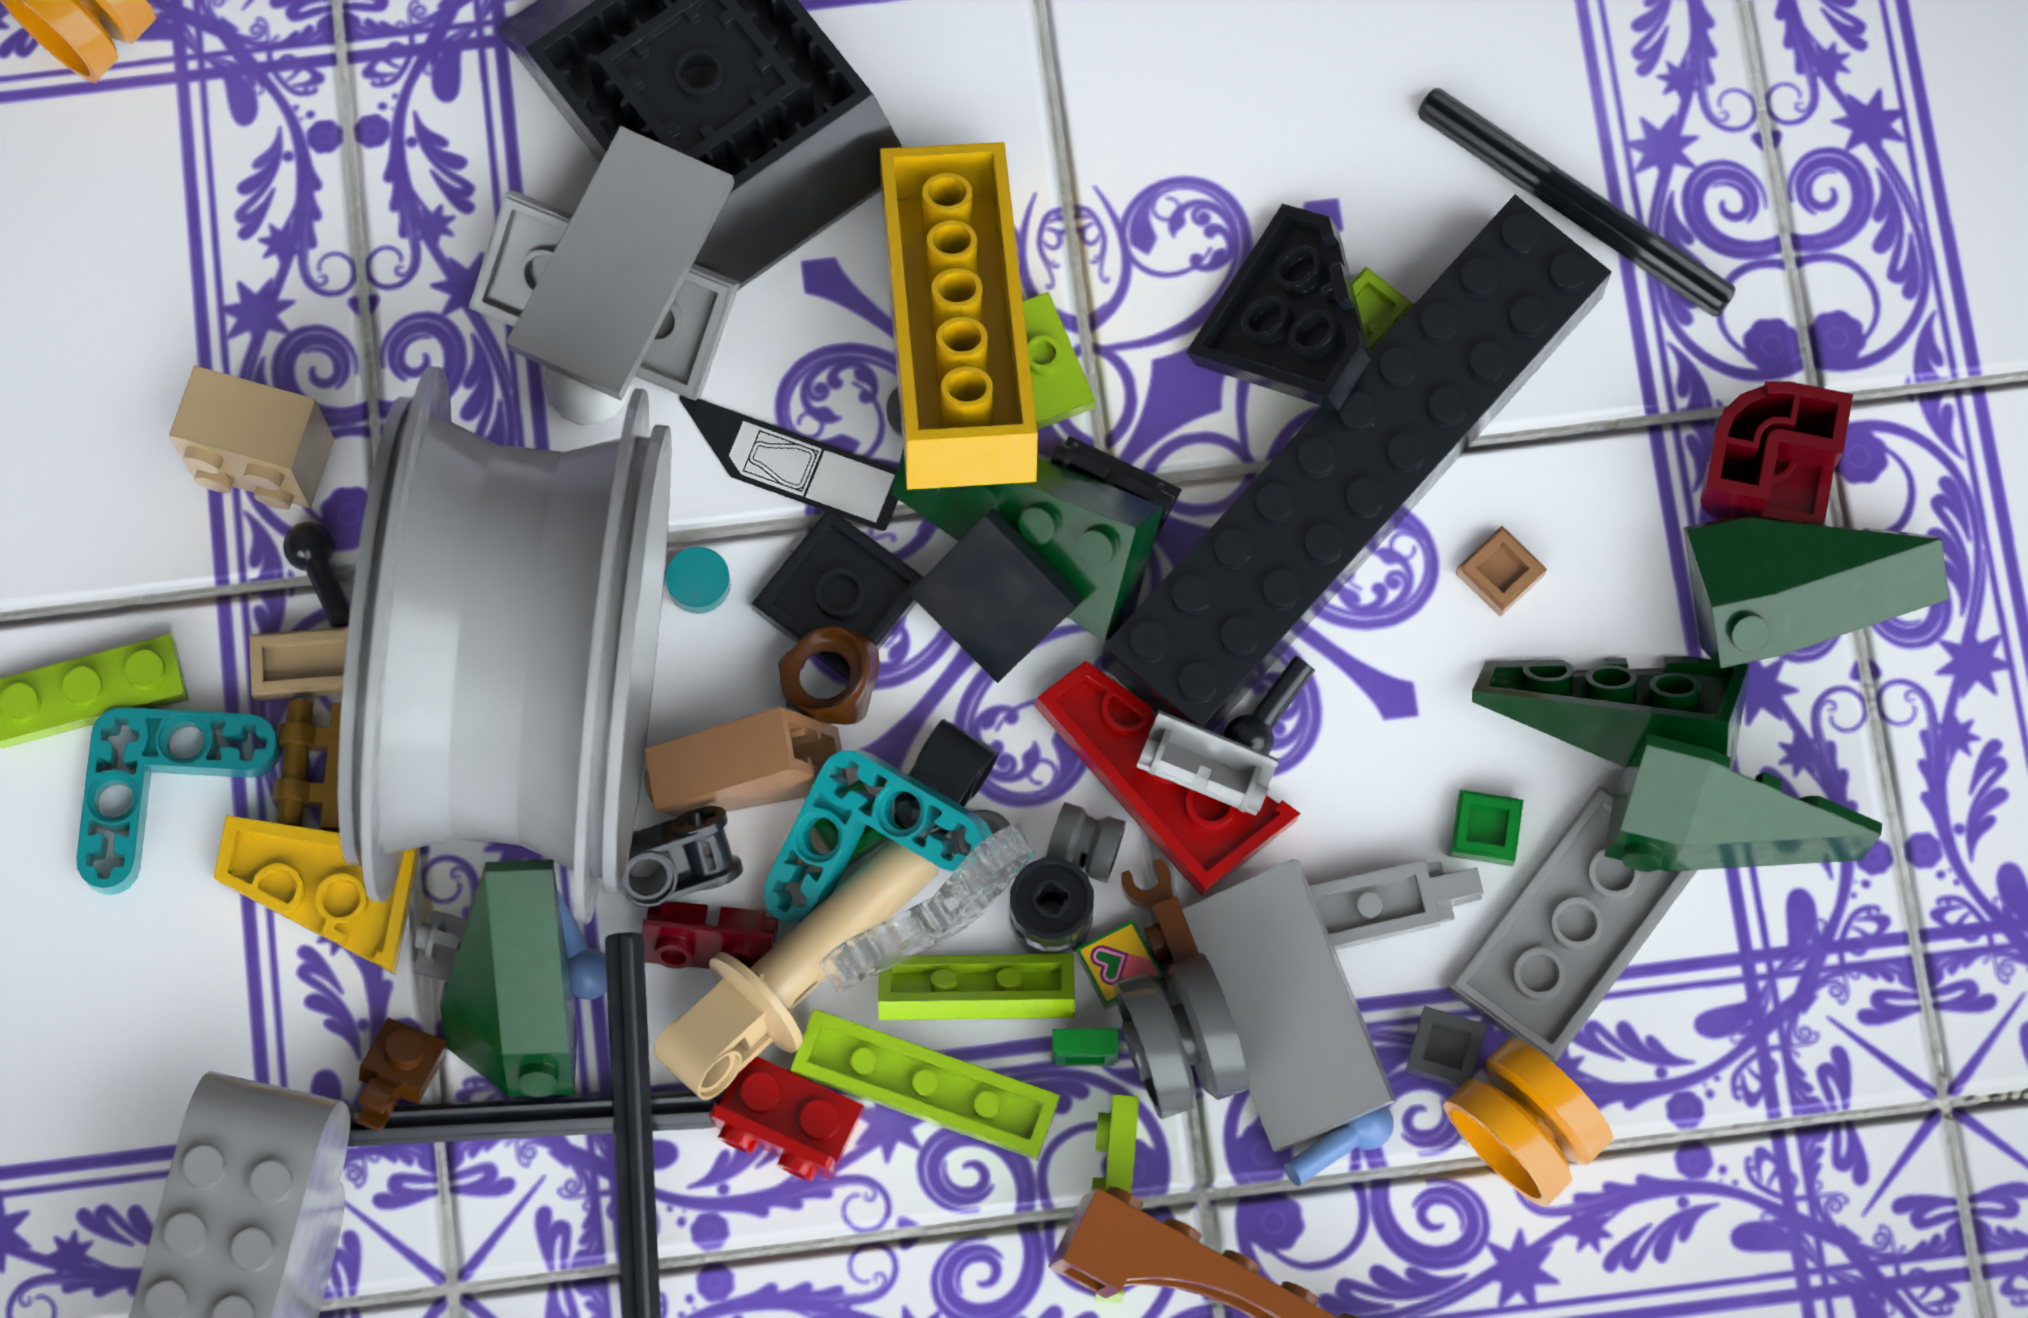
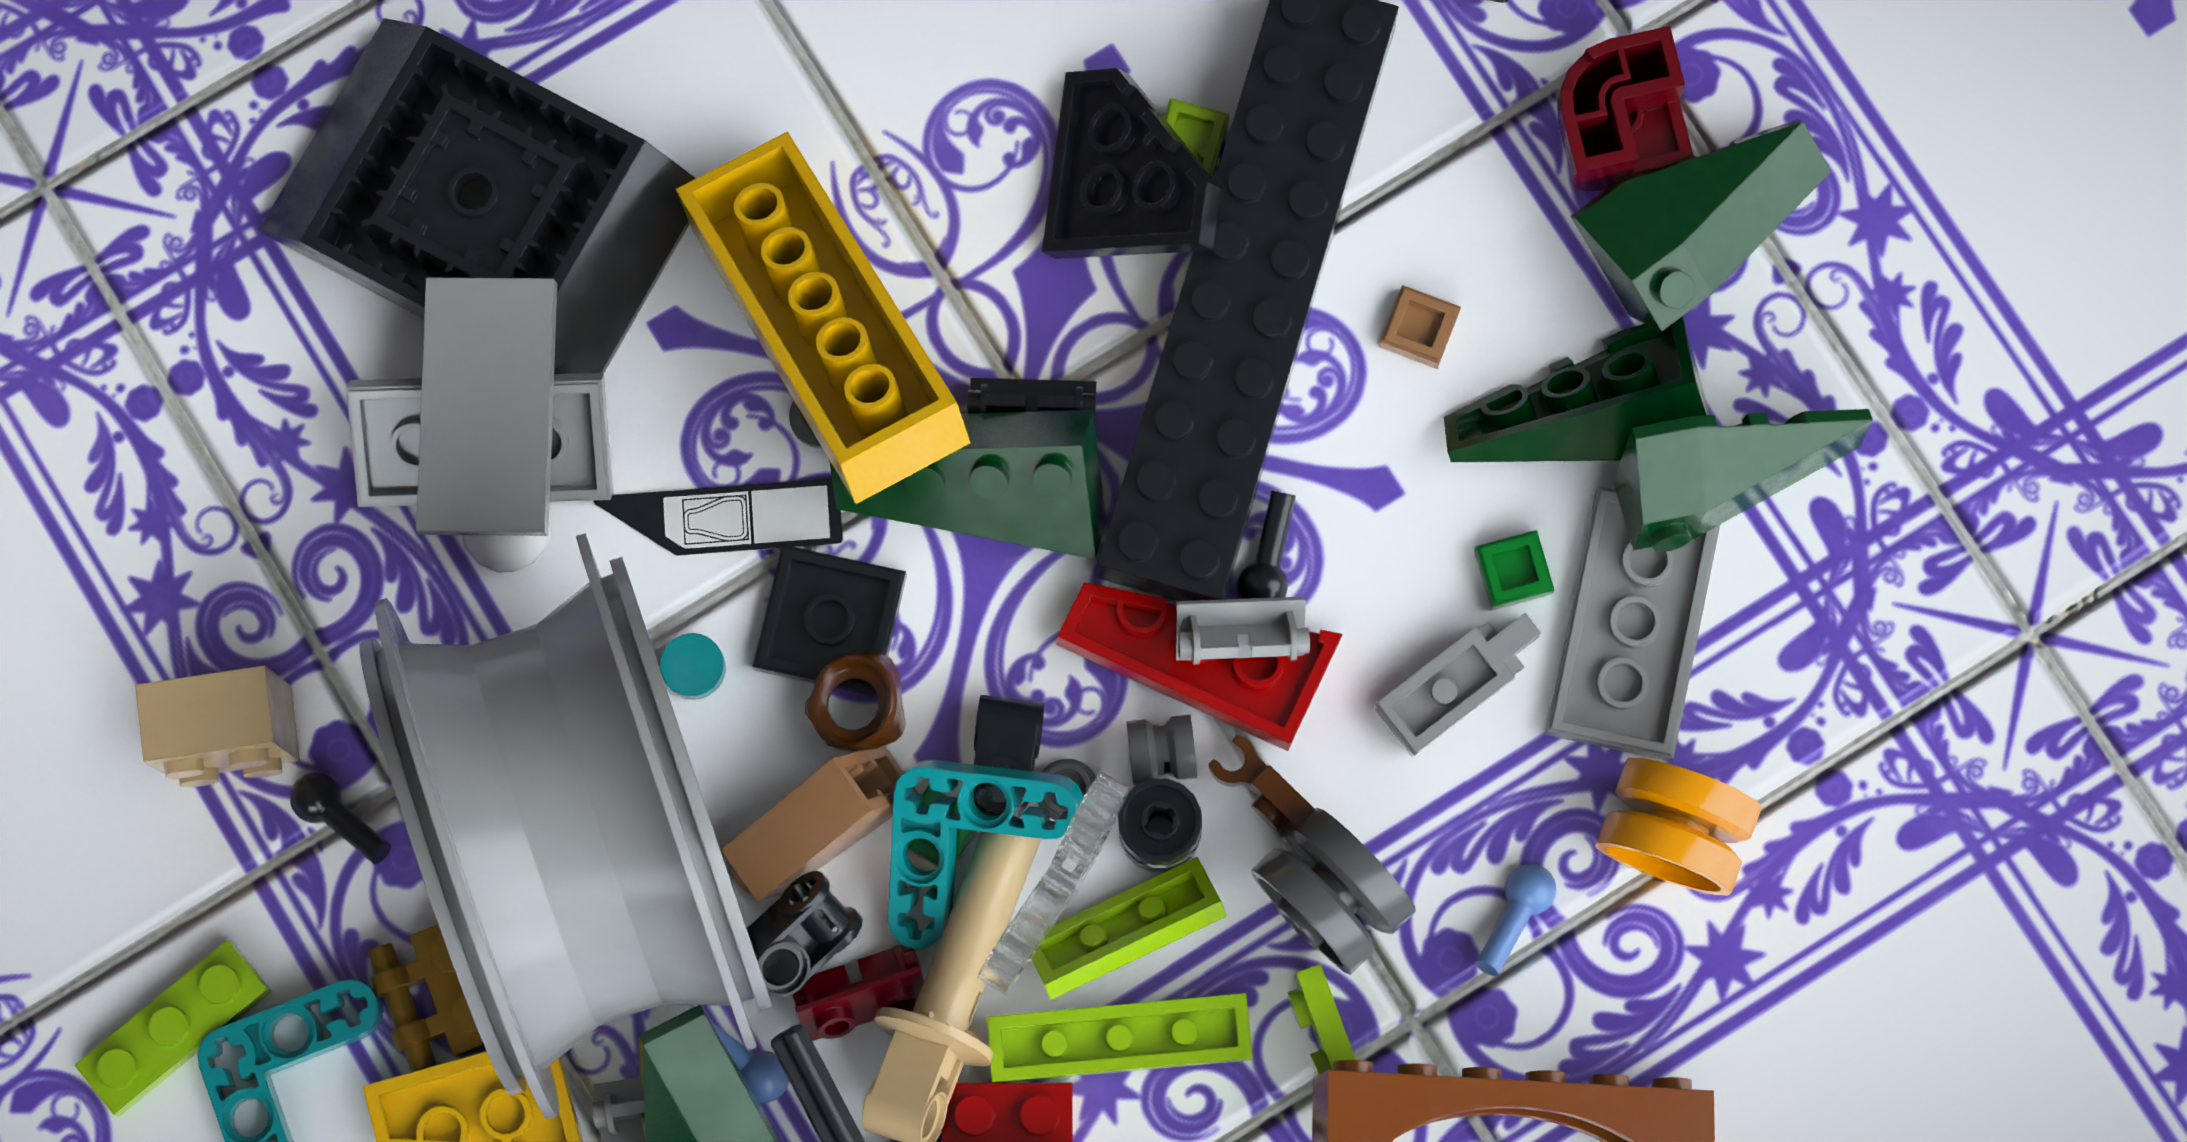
camera: 20 degrees left, 5 degrees up
(297, 663) = (369, 906): tan tile -> none
(995, 595) = (976, 560): black tile -> none
(1056, 374) = (935, 324): lime plate -> none
(1085, 1047) = (1248, 938): green tile -> none
(1116, 957) = (1239, 845): tile -> none
(1290, 1006) = (1414, 815): light grey tile -> none
(1445, 1047) = (1570, 789): dark grey plate -> none

